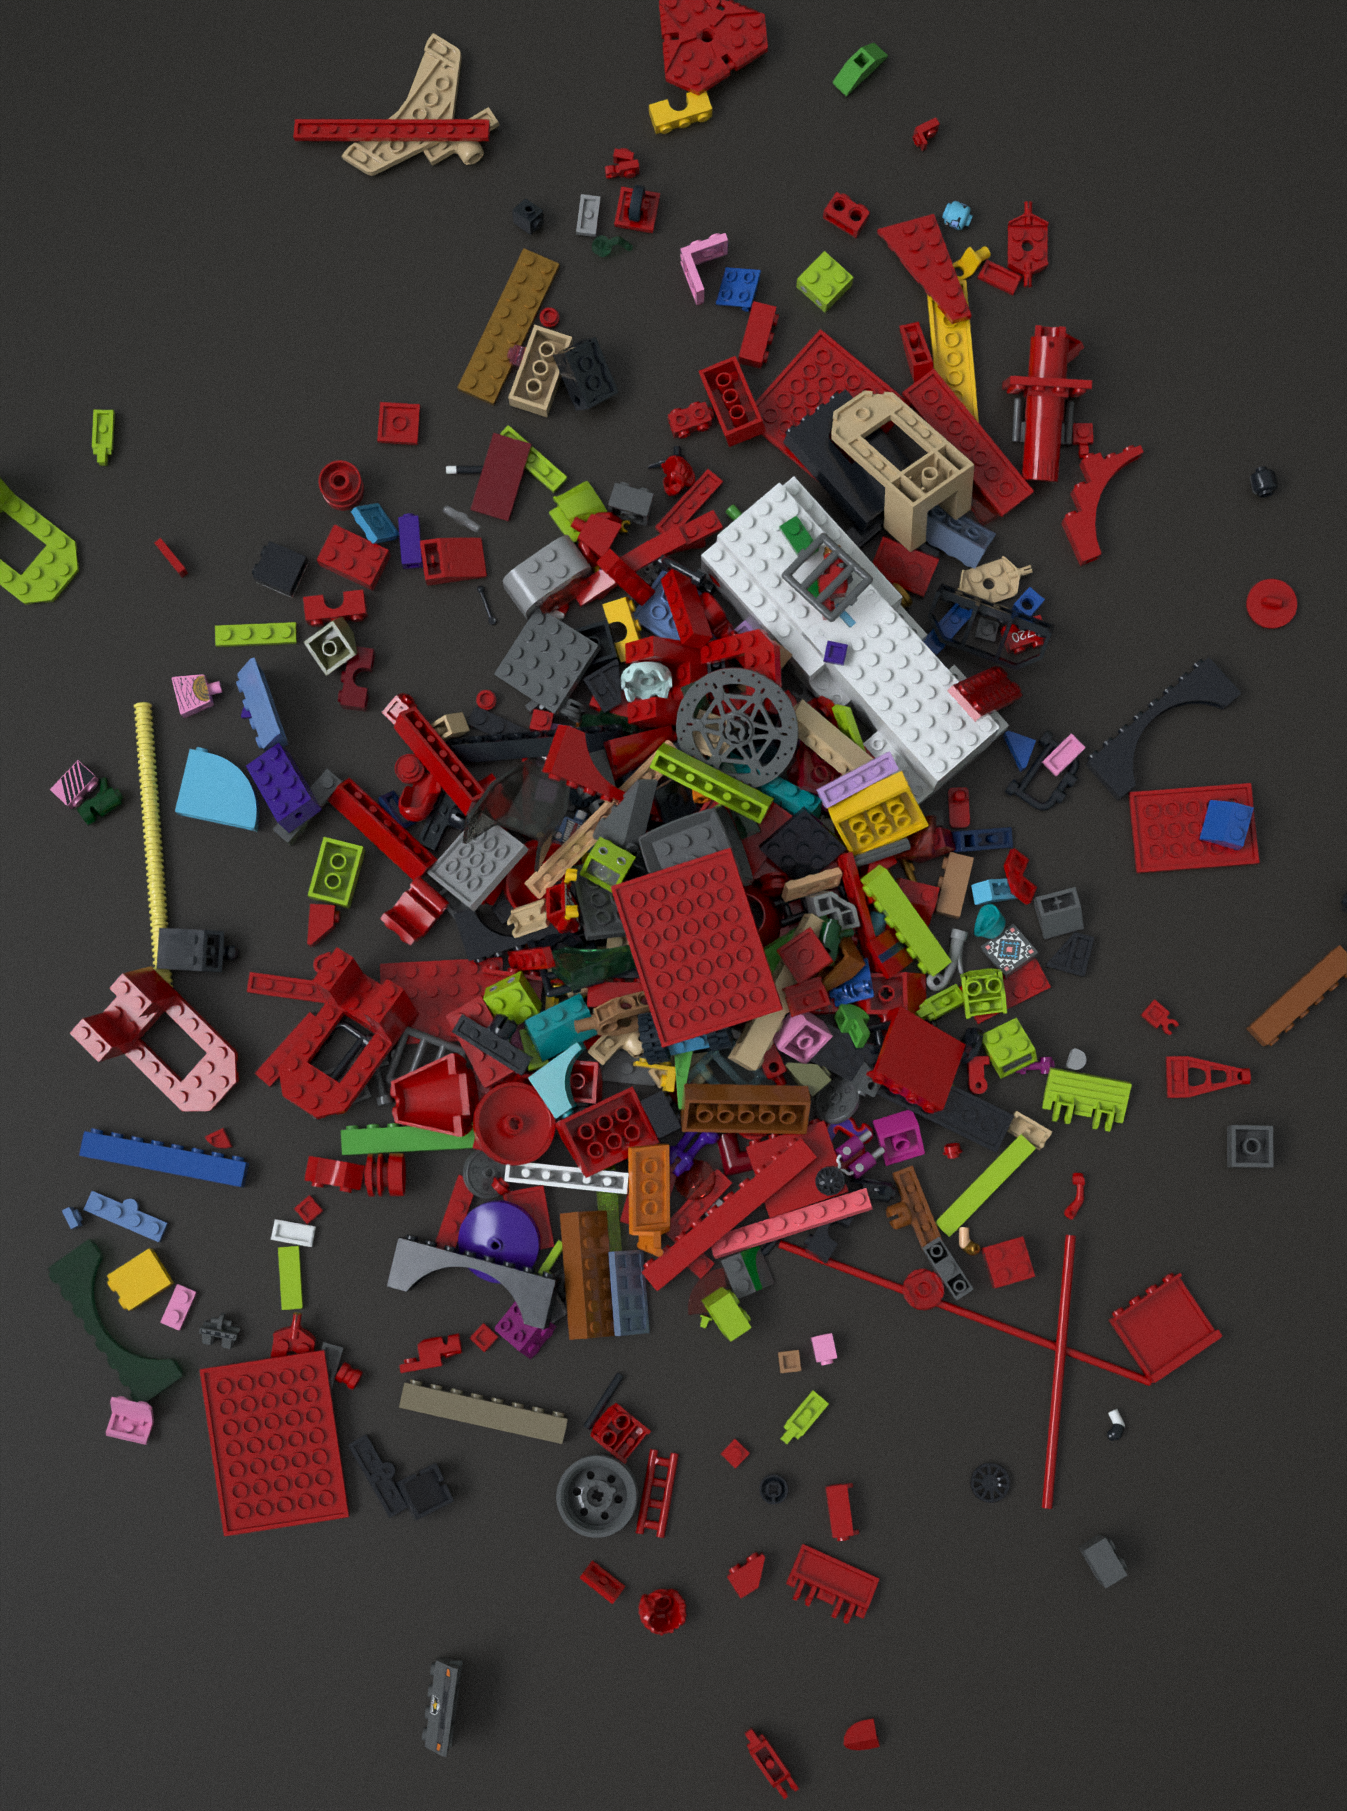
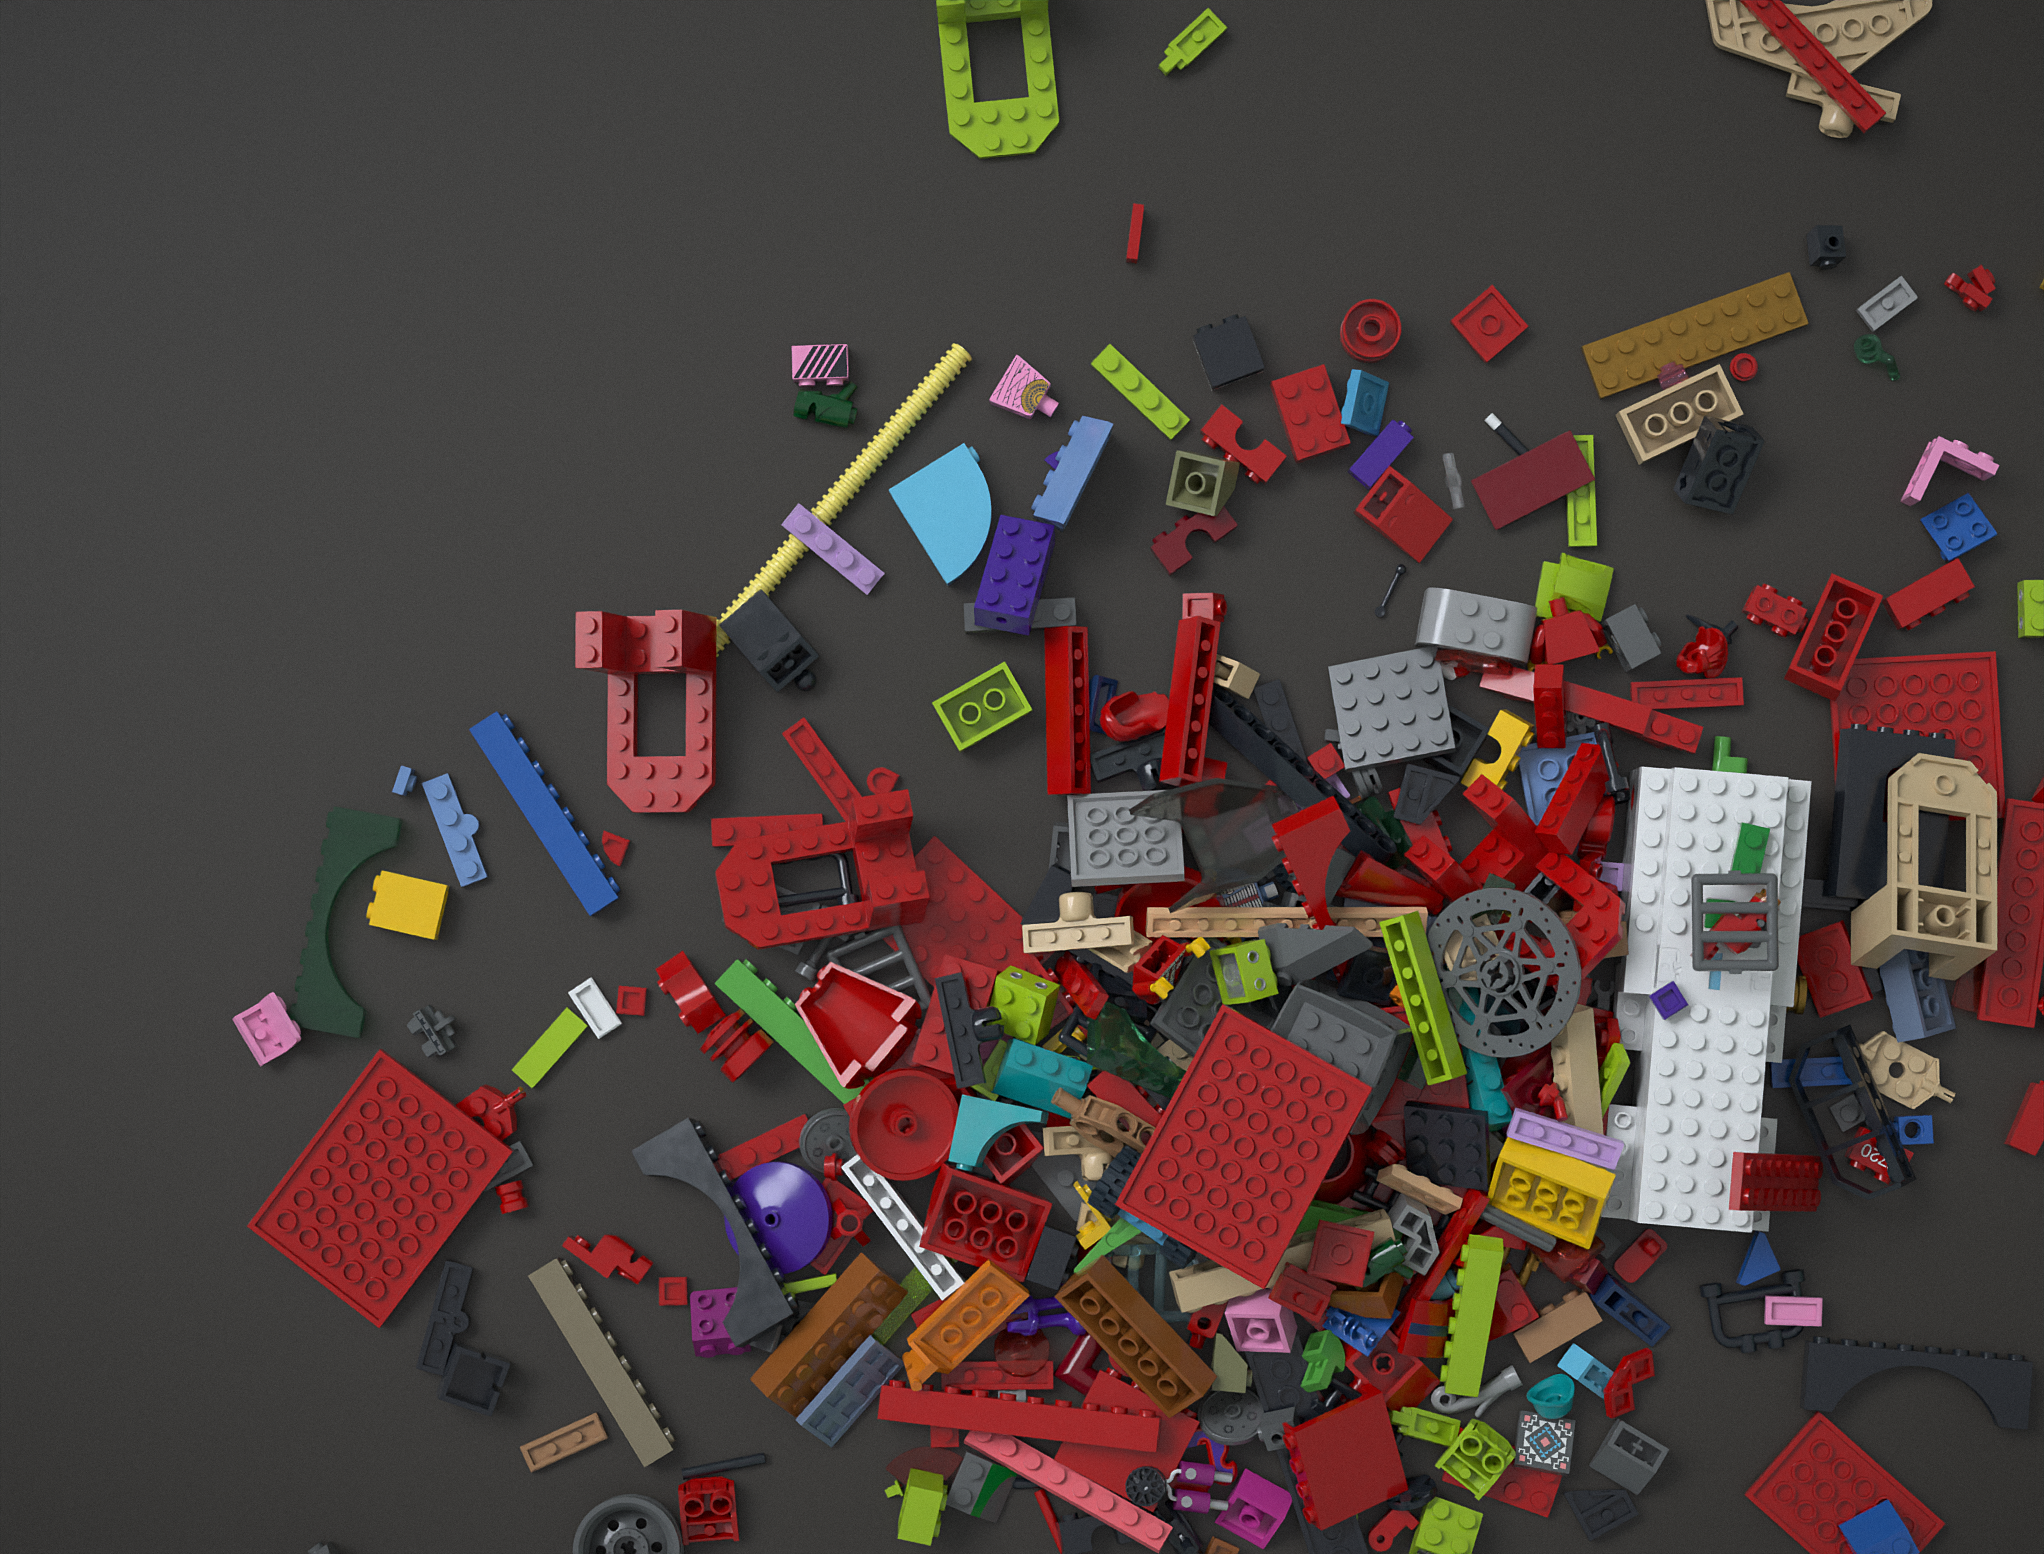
camera: 45 degrees right, 5 degrees up
(176, 871) = (832, 549): none -> lavender plate
(178, 1307) = (418, 967): bright pink plate -> none
(321, 922) = (920, 739): red slope -> none
(409, 769) = (1153, 676): red plate -> none
(415, 912) = (1018, 822): red piece -> none
(486, 700) = (1295, 684): red plate -> none
(499, 931) = (1077, 928): none -> tan plate
(507, 1476) = (564, 1442): none -> medium nougat tile
(538, 1204) = (850, 1222): none -> red rock
(637, 209) = (1940, 347): red plate -> none
(637, 686) = (1464, 828): light aqua plate -> none
(828, 766) = (1550, 1096): none -> red plate

